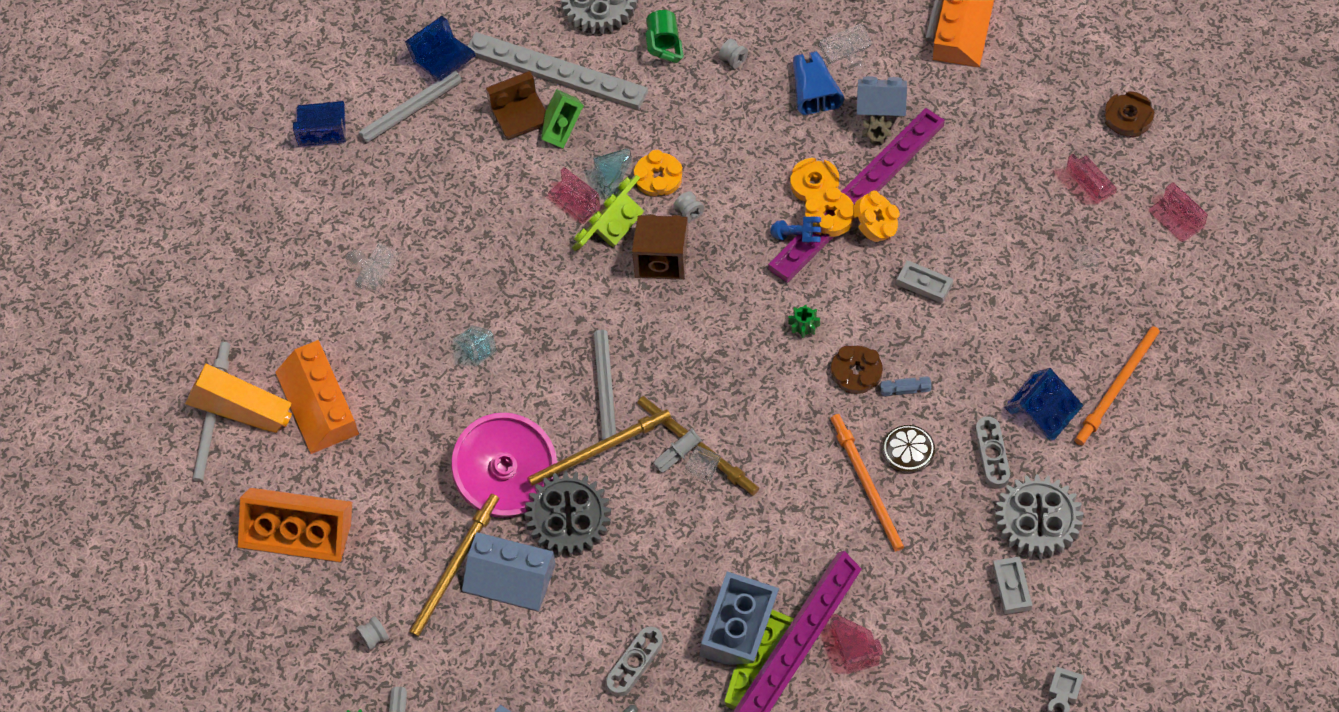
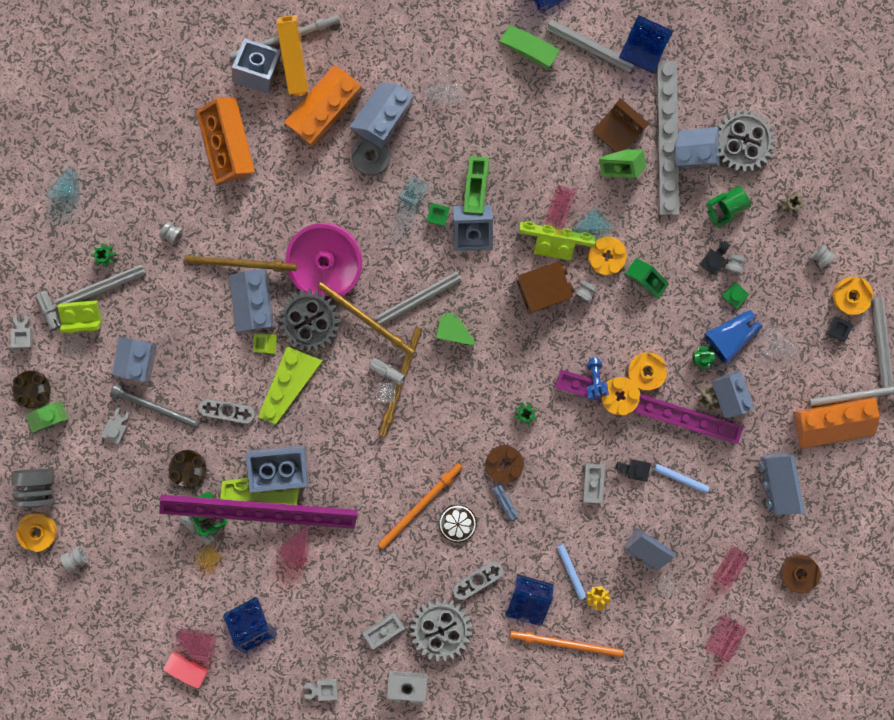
camera: 60 degrees right, 30 degrees up
(227, 450) = (255, 66): none -> sand blue slope
(363, 334) = (382, 113): none -> sand blue slope
(377, 161) = (530, 47): none -> bright green slope
(405, 384) = (370, 167): none -> dark grey plate
(502, 268) = (476, 185): none -> bright green slope
(515, 326) = (438, 214): none -> green plate
(551, 293) = (473, 230): none -> sand blue slope
(569, 583) = (264, 343): none -> lime slope
(584, 41) = (697, 148): none -> sand blue slope
(632, 571) = (289, 380): none -> lime wing
(664, 359) = (453, 330): none -> bright green slope
(703, 141) = (647, 277): none -> green slope
(716, 73) = (713, 259): none -> black plate
(769, 68) = (735, 295): none -> green plate
(825, 118) = (703, 357): none -> green gear
(875, 205) = (622, 434): light orange plate -> none
(928, 233) = (636, 469): none -> black plate
(961, 193) = (681, 478): none -> light blue bar
(1011, 89) = (781, 484): none -> sand blue slope
(1019, 347) = (571, 572): none -> light blue bar
(1031, 246) = (648, 549): none -> sand blue slope
(1071, 325) = (598, 598): none -> yellow gear
(1104, 570) = (416, 680): none -> light grey brick

